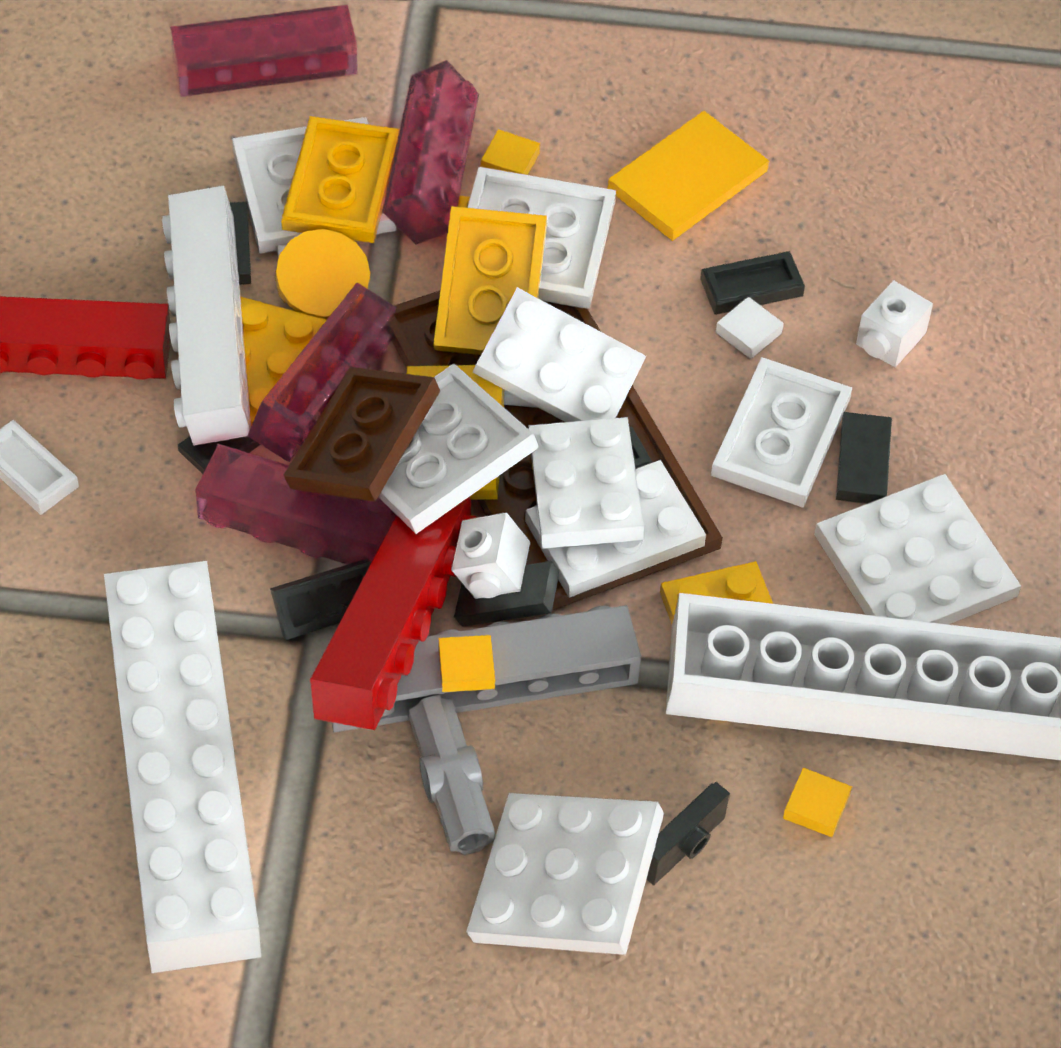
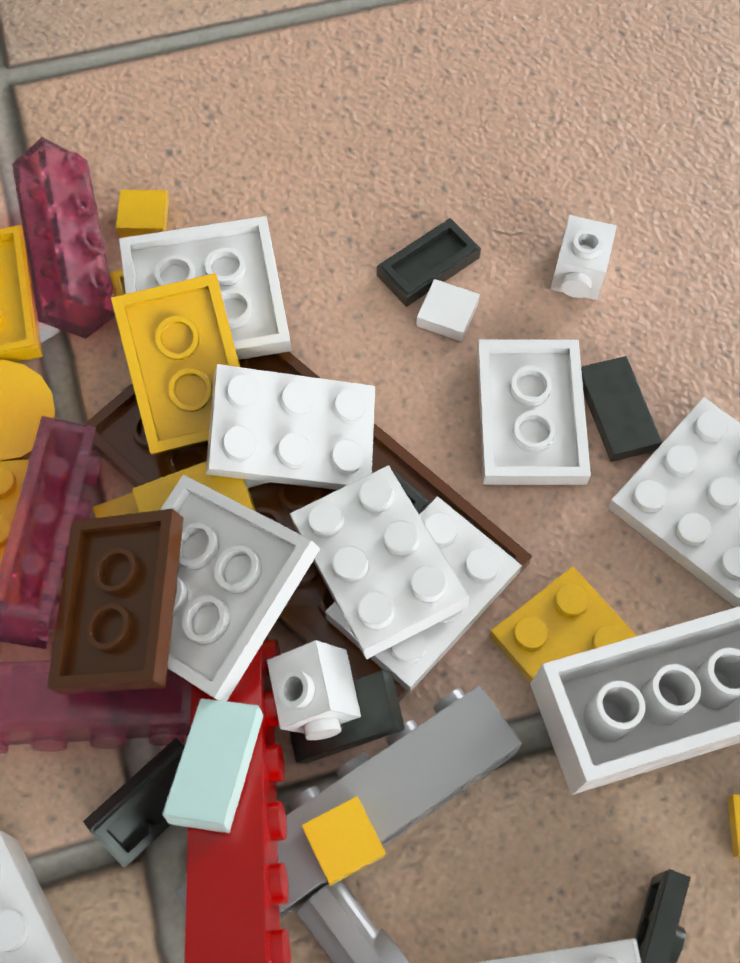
camera: 20 degrees left, 10 degrees up
(390, 564) = (213, 765): none -> light aqua tile
(688, 175) = (319, 174): yellow tile -> none

